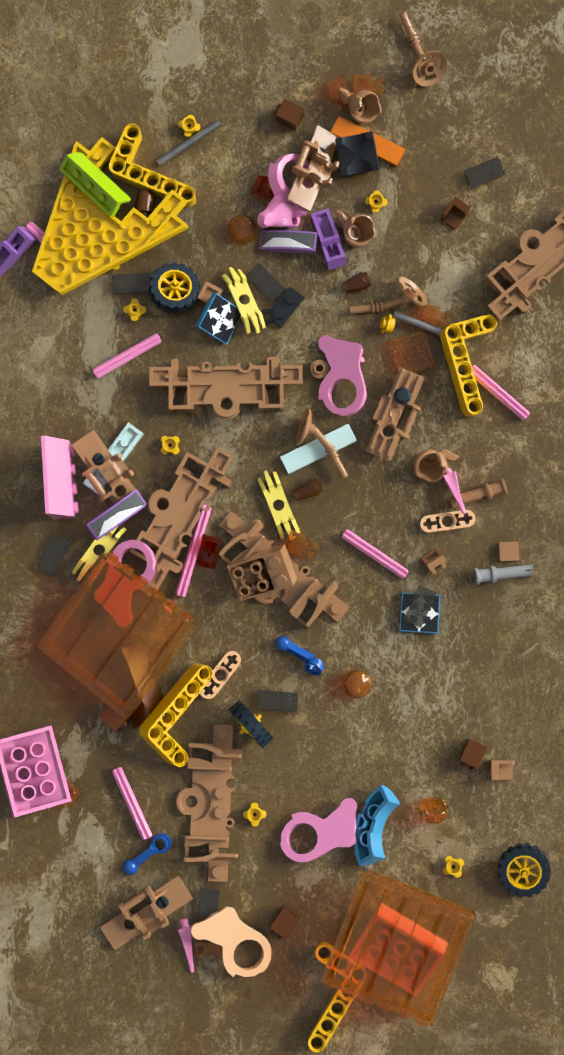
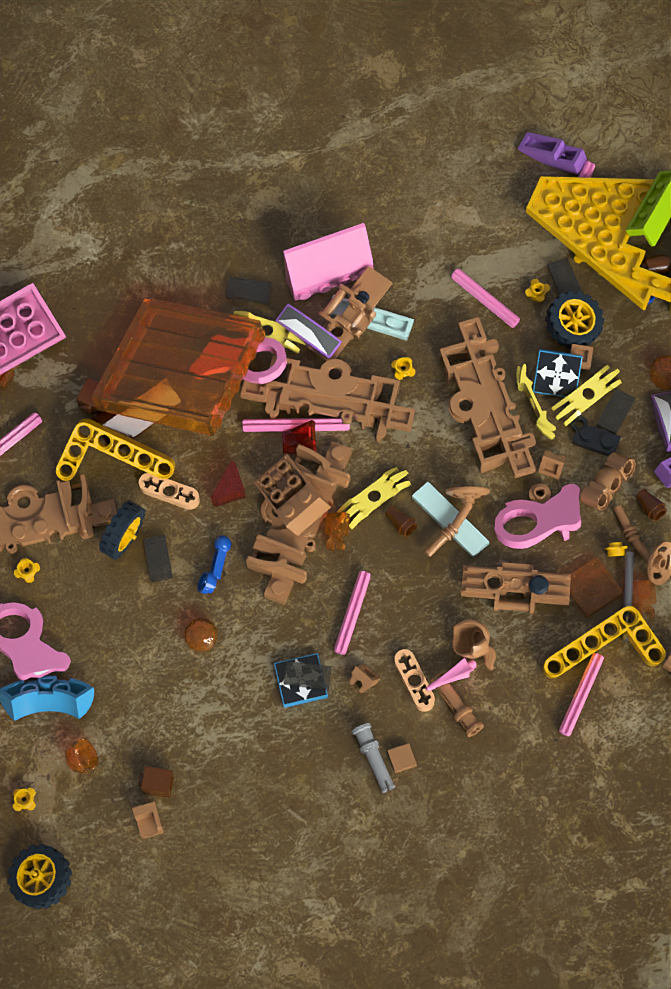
camera: 75 degrees right, 15 degrees down
(218, 349) = (525, 385): none -> light yellow piece
(234, 622) = (229, 488): none -> clear red slope
(297, 350) = (552, 465): none -> medium nougat tile
(327, 309) = (608, 481): none -> medium nougat piece

